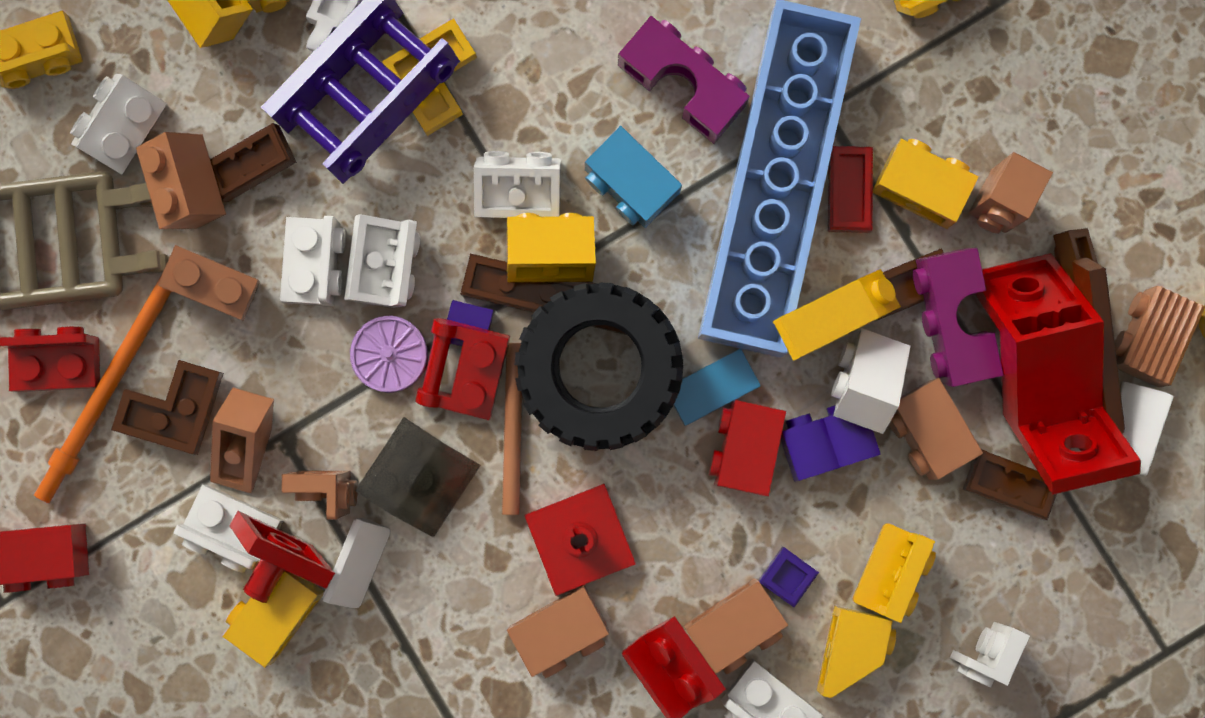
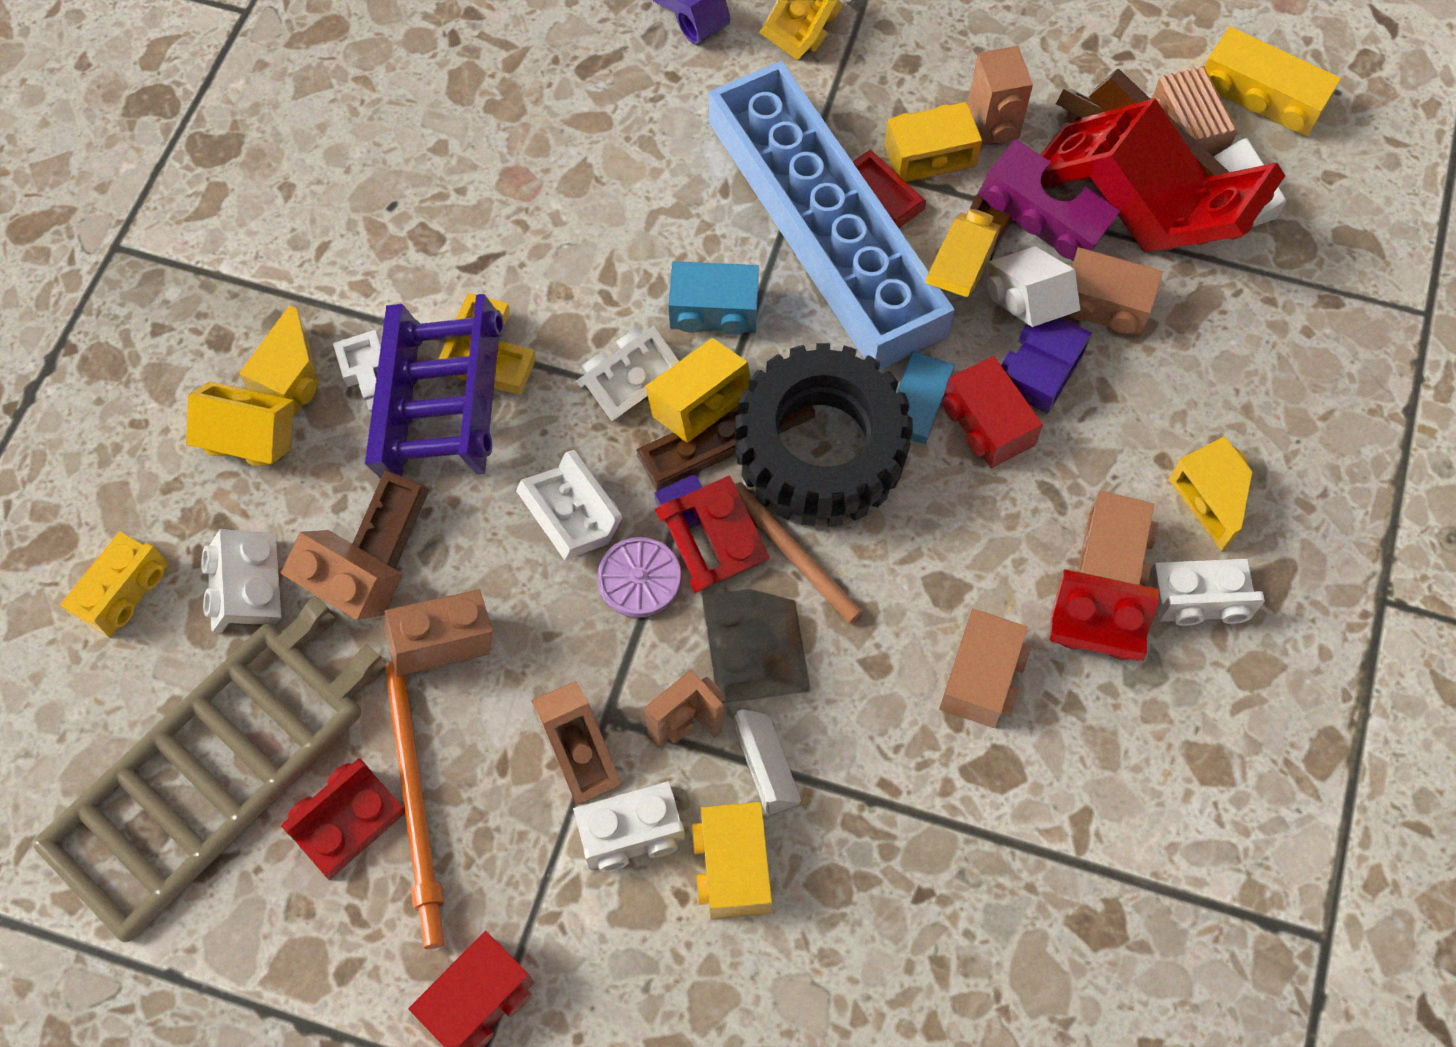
camera: 40 degrees left, 20 degrees down
(180, 418) = (500, 778): reddish brown plate -> none
(277, 554) = (699, 786): red tile -> none
(311, 261) = (510, 556): white bracket -> none
(579, 539) = (929, 590): red tile -> none
(660, 52) = (656, 198): magenta arch -> none
(788, 576) = (1114, 477): dark purple tile -> none
(894, 572) = (1189, 405): yellow bracket -> none
(998, 657) = (1320, 398): white bracket -> none
(1009, 485) = (1203, 286): reddish brown plate -> none

